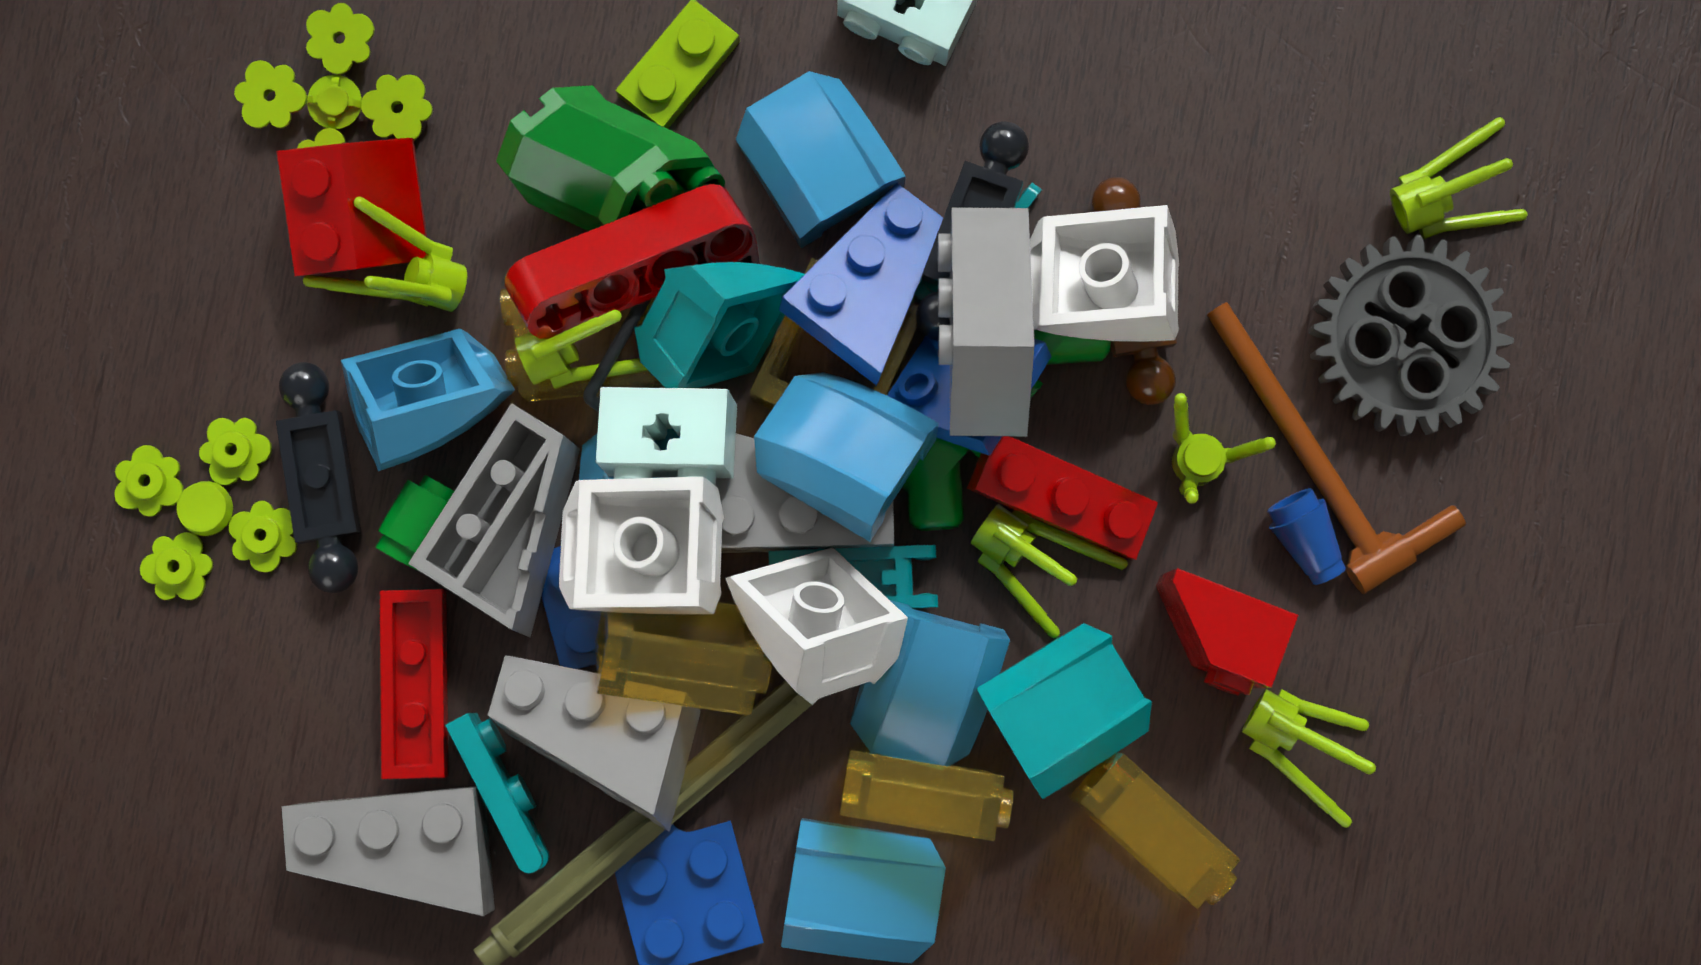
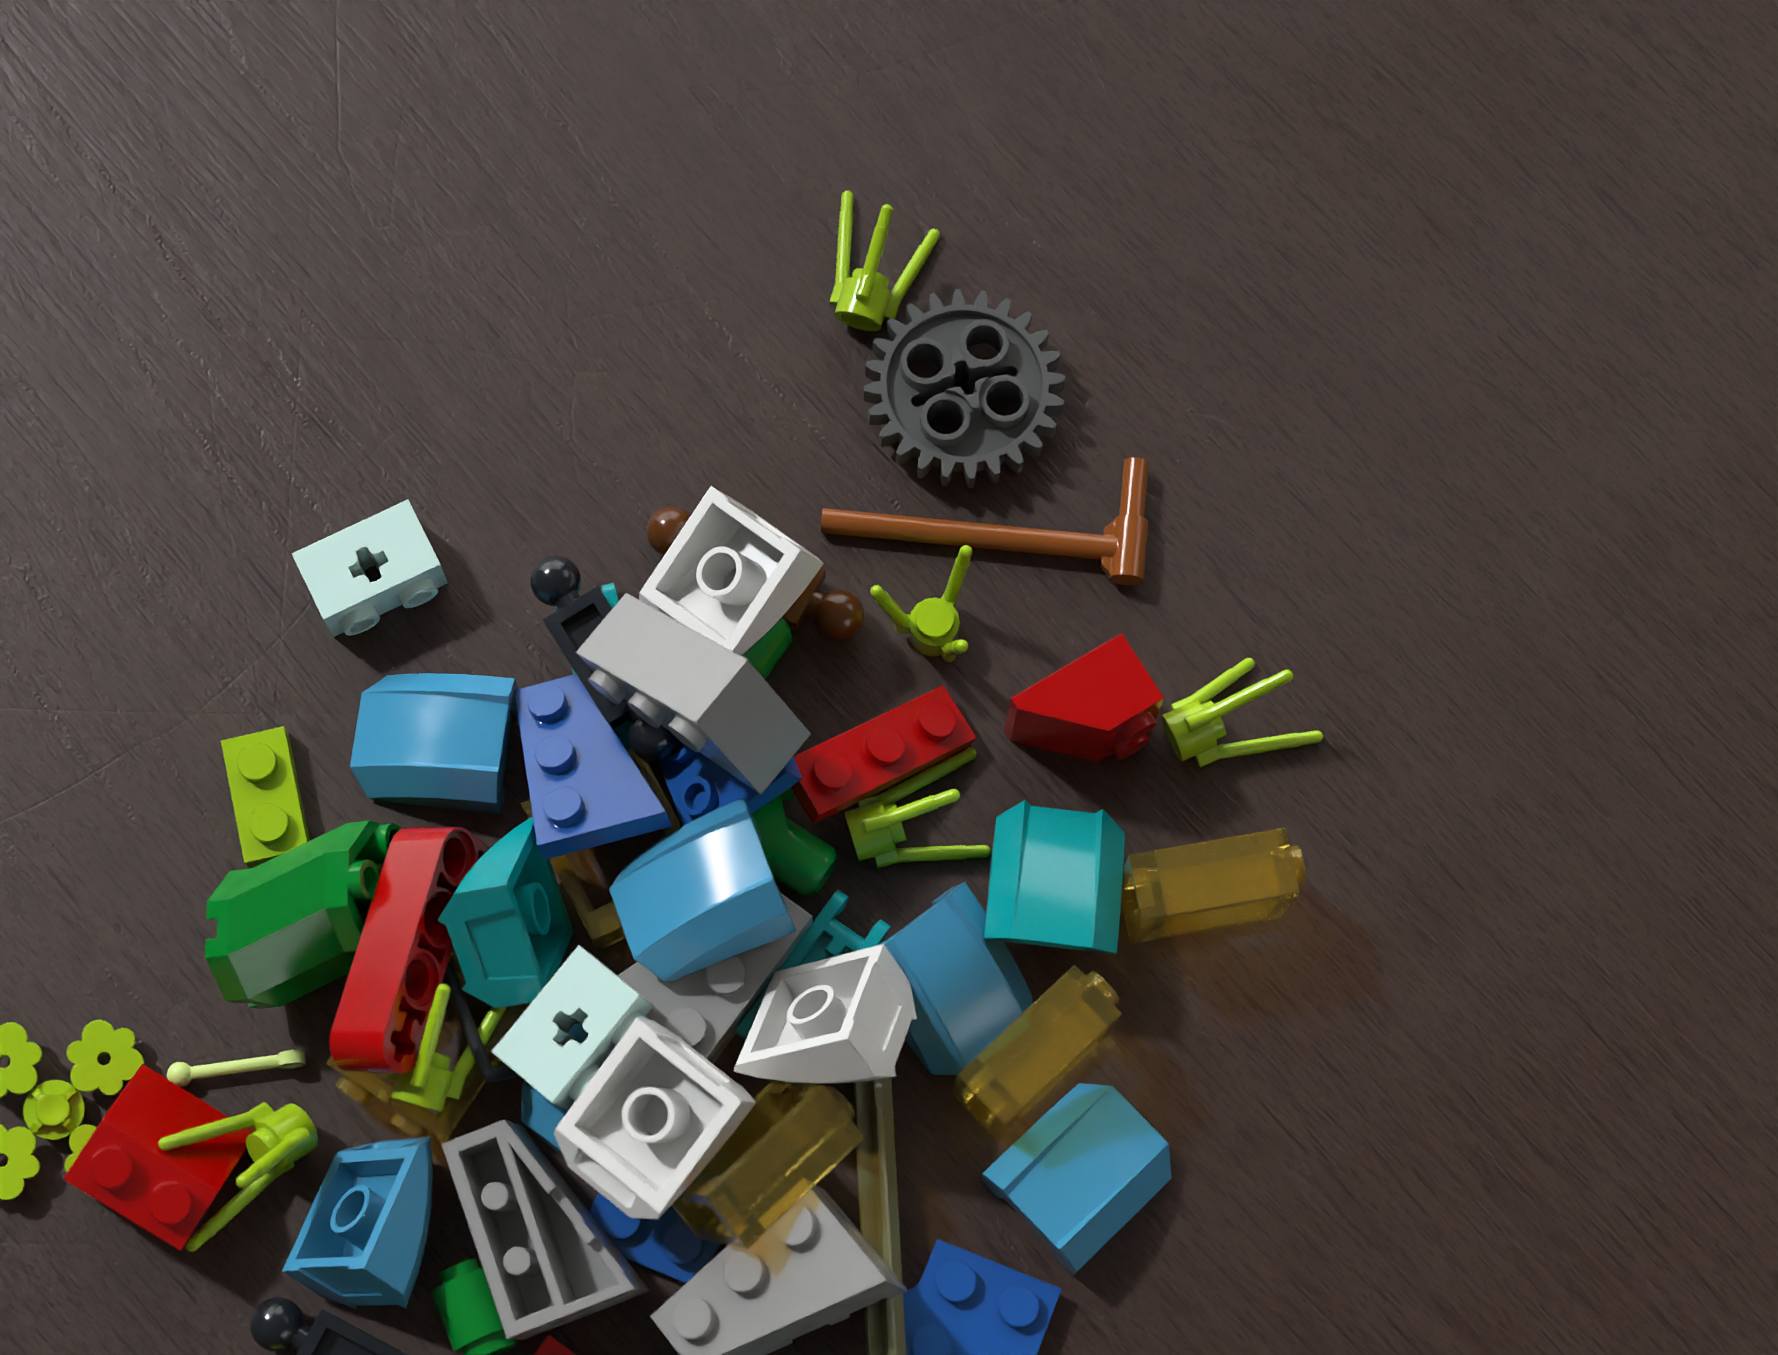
camera: 55 degrees left, 10 degrees down
(430, 171) = (182, 1074): none -> yellowish green hinge
(1308, 535) = (1061, 587): blue cone -> none

